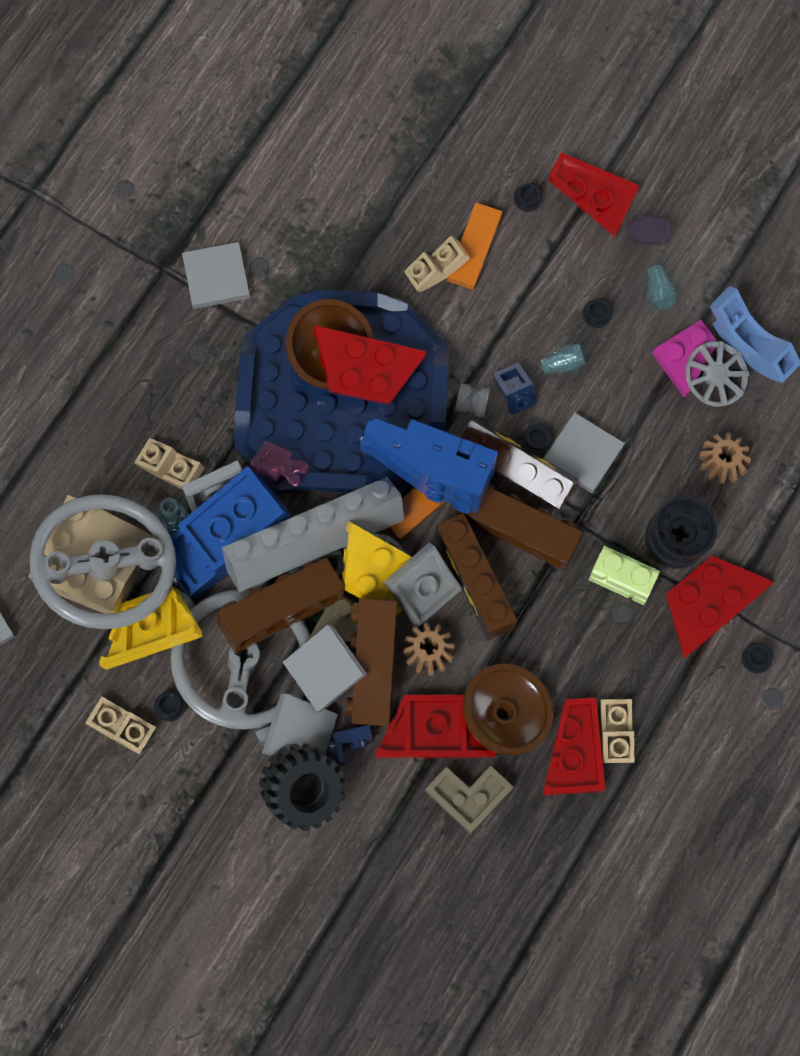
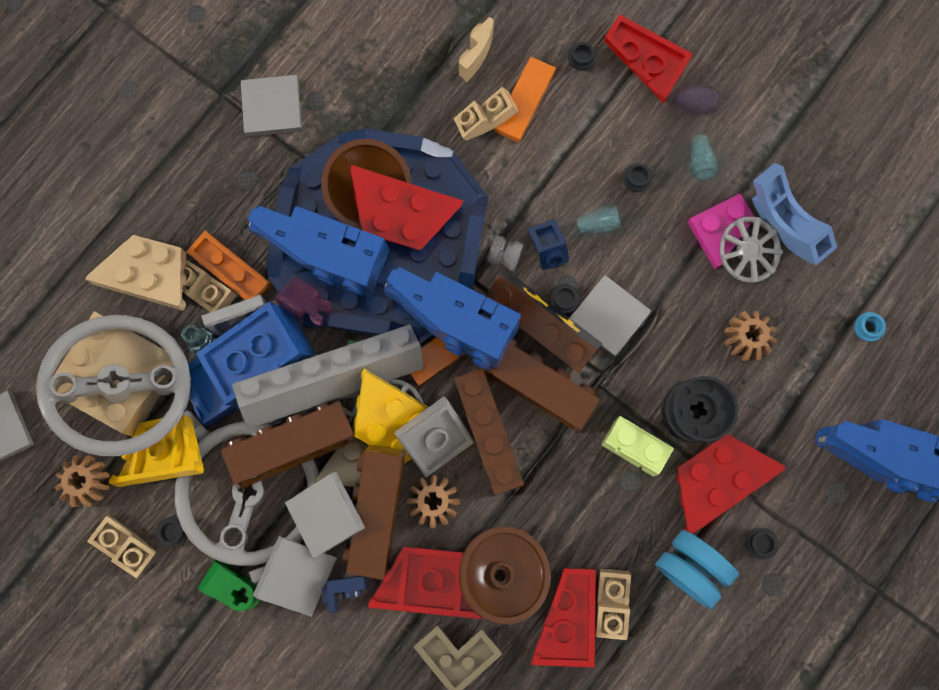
camera: 10 degrees right, 5 degrees up
(77, 652) = (71, 481): none -> medium nougat gear
(109, 452) = (144, 271): none -> tan wing
(191, 441) = (228, 267): none -> orange tile
(231, 750) = (225, 585): none -> green piece
(295, 407) = (324, 246): none -> blue piece
(318, 803) = (290, 657): black tyre -> none
(422, 196) = (480, 43): none -> tan slope
(694, 684) = (699, 565): none -> dark azure wheel

